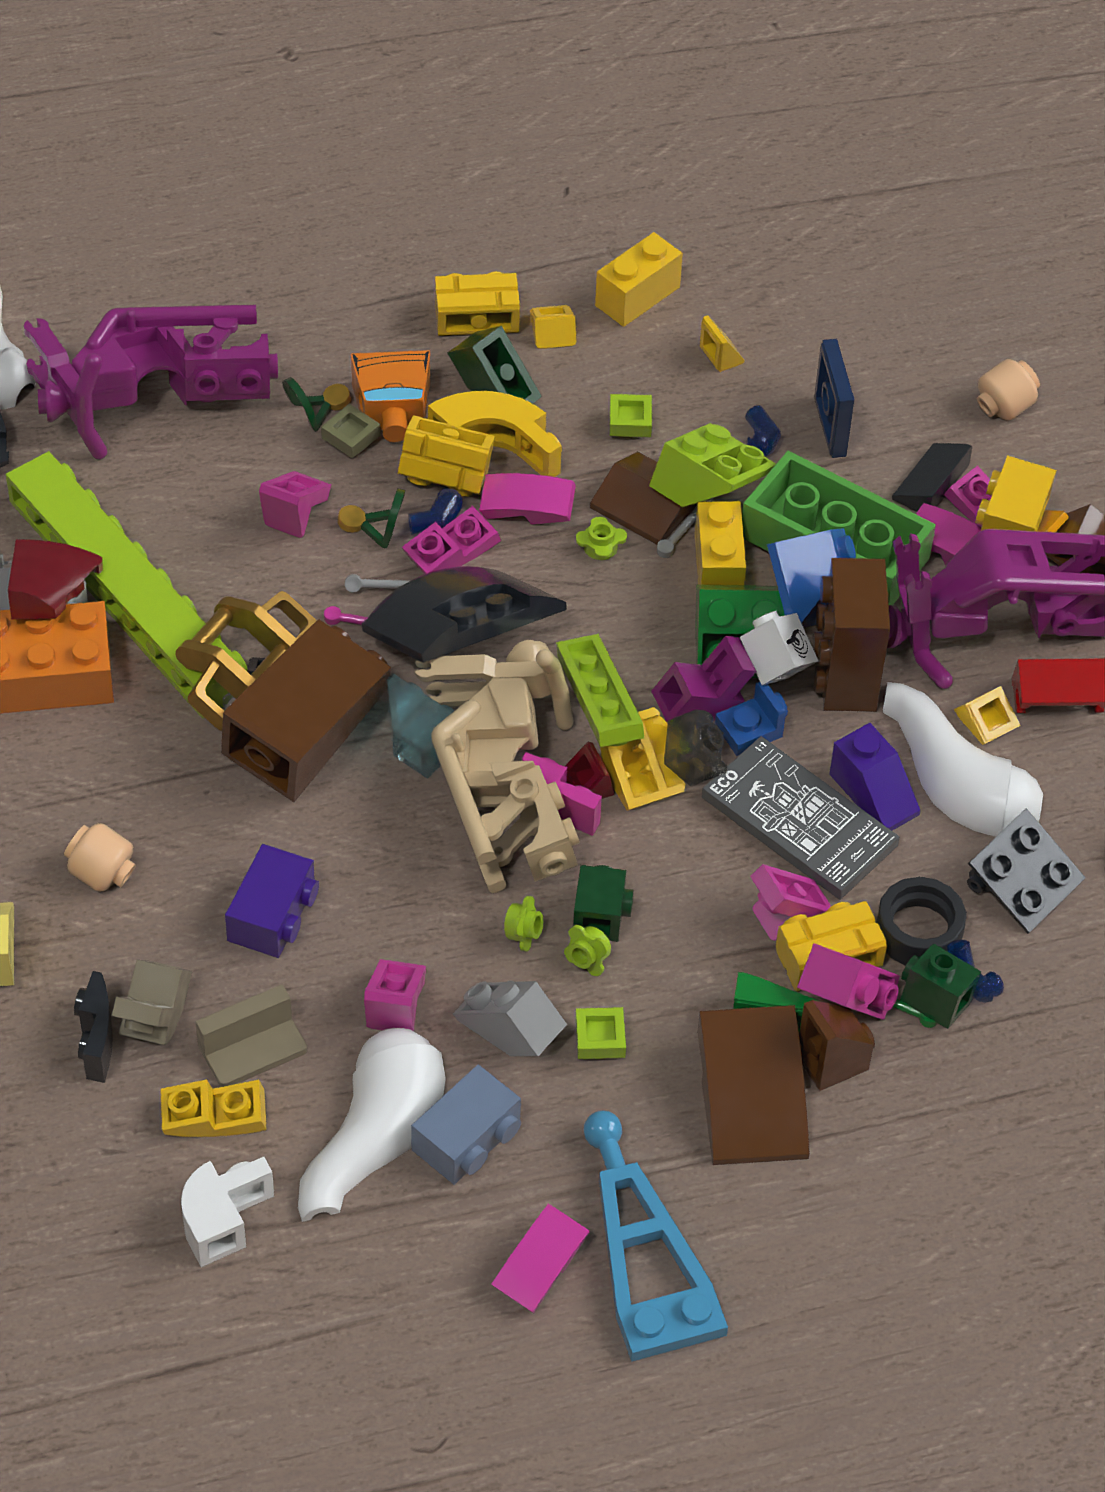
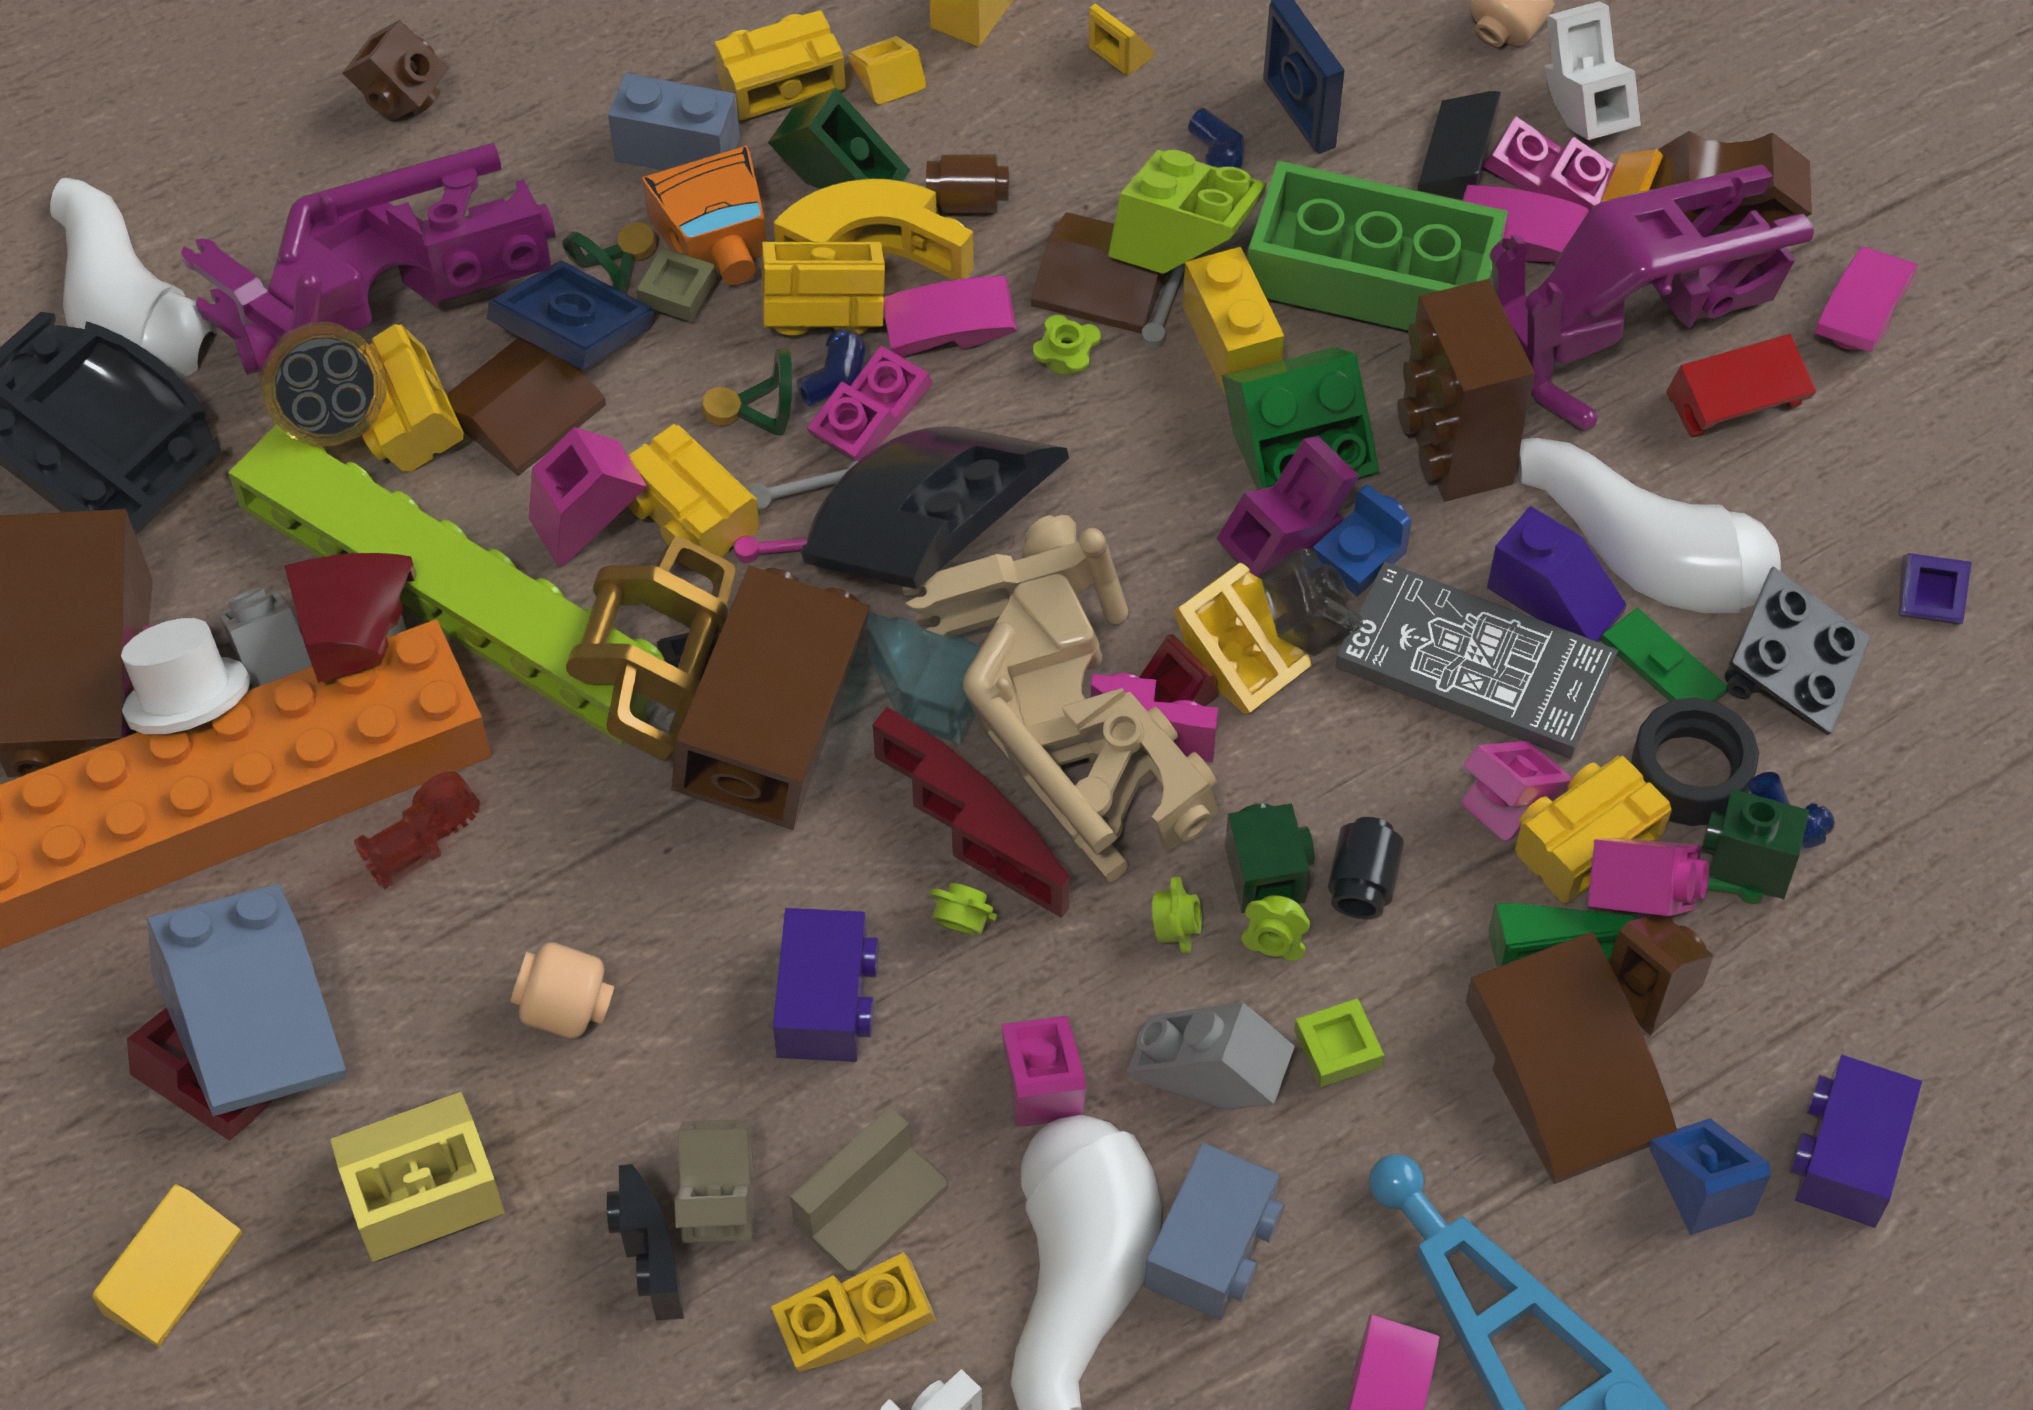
camera: 15 degrees left, 5 degrees up
(49, 731) = (434, 814): none -> clear red connector
(84, 431) = (323, 384): none -> tile
(137, 457) = (416, 410): none -> yellow brick
(214, 244) = (396, 72): none -> reddish brown brick
(217, 481) = (523, 403): none -> reddish brown slope
(230, 544) = (580, 491): none -> dark pink slope
(271, 432) = (571, 314): none -> dark blue tile
(289, 499) = (634, 401): dark pink slope -> none
(304, 567) = (692, 493): none -> yellow brick
(382, 879) = (961, 909): none -> lime plate
(385, 322) = (670, 122): none -> sand blue piece
(415, 826) = (984, 824): none -> dark red slope
(574, 414) = (968, 183): none -> reddish brown brick
(600, 691) = (1161, 560): lime plate -> none
(630, 415) = (1040, 165): lime plate -> none
(664, 928) = (1365, 868): none -> black brick
(778, 647) = (1375, 435): white brick -> none
(799, 568) = (1374, 318): blue slope -> none
(816, 1188) = (1710, 1174): none -> blue slope
(926, 1191) = (1856, 1141): none -> dark purple piece
(930, 852) = (1662, 659): none -> green piece
(988, 715) = (1659, 449): yellow slope -> none
(1018, 496) = (1595, 151): yellow piece -> none
(1042, 438) = (1584, 79): none -> white brick

